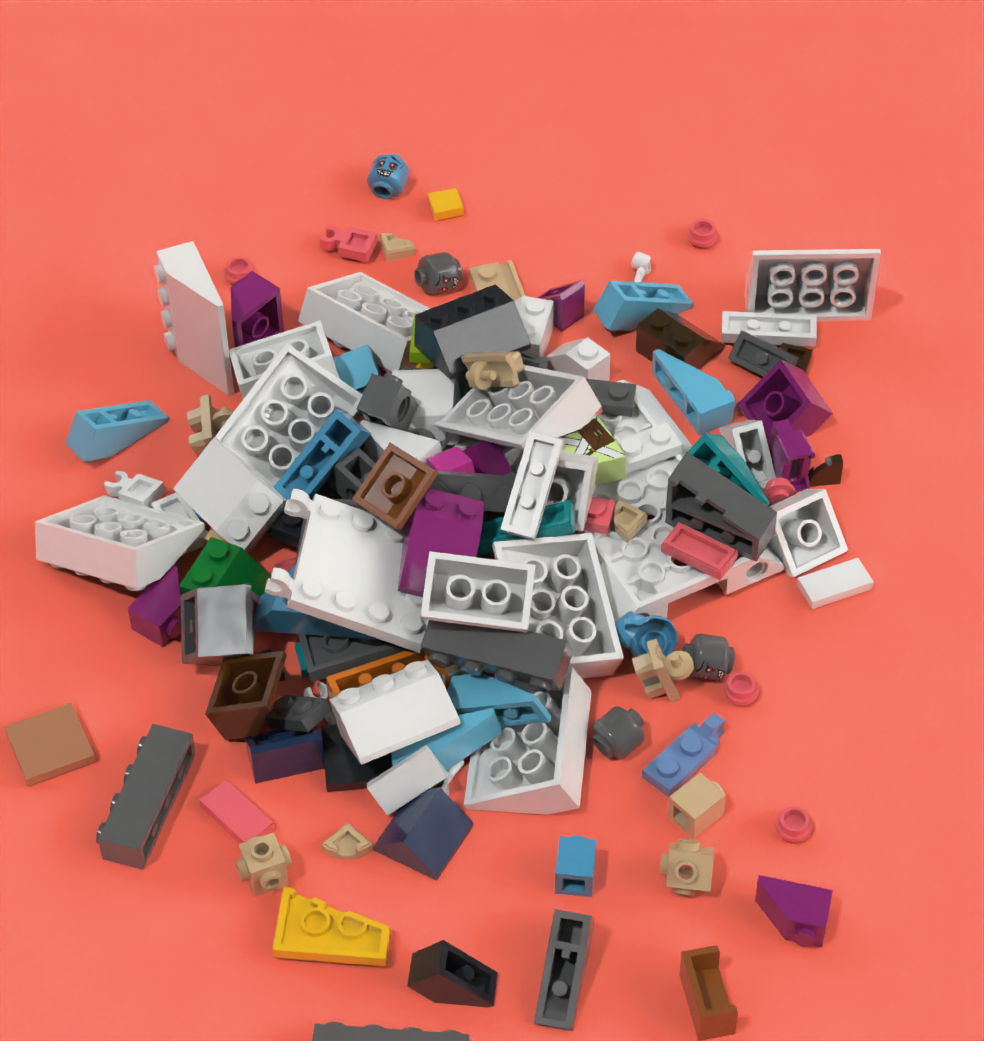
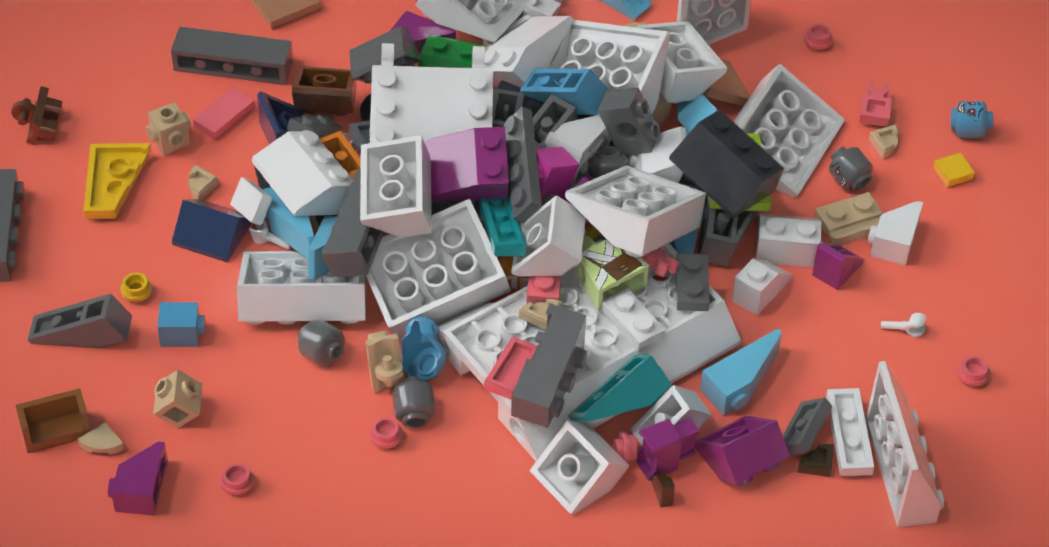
camera: 80 degrees right, 0 degrees up
(208, 1010) = (27, 112): none -> copper hips
(255, 309) = (746, 40): magenta slope -> none
(395, 486) = (502, 111): dark orange slope -> none
(451, 976) = (68, 256): black slope -> none
(493, 369) = (677, 175): tan hips -> none
(511, 904) = (135, 287): none -> yellow plate
(532, 253) = (895, 233): none -> white slope
(532, 485) = (522, 205): white plate -> none
(628, 303) = (853, 324): medium azure slope -> none
(675, 337) = (811, 356): dark brown slope -> none
(685, 755) = (307, 397): medium blue hinge -> none
(696, 805) = (247, 403): tan brick -> none
(732, 953) = (101, 440): none -> tan tile
(835, 583) = (524, 503): white tile -> none

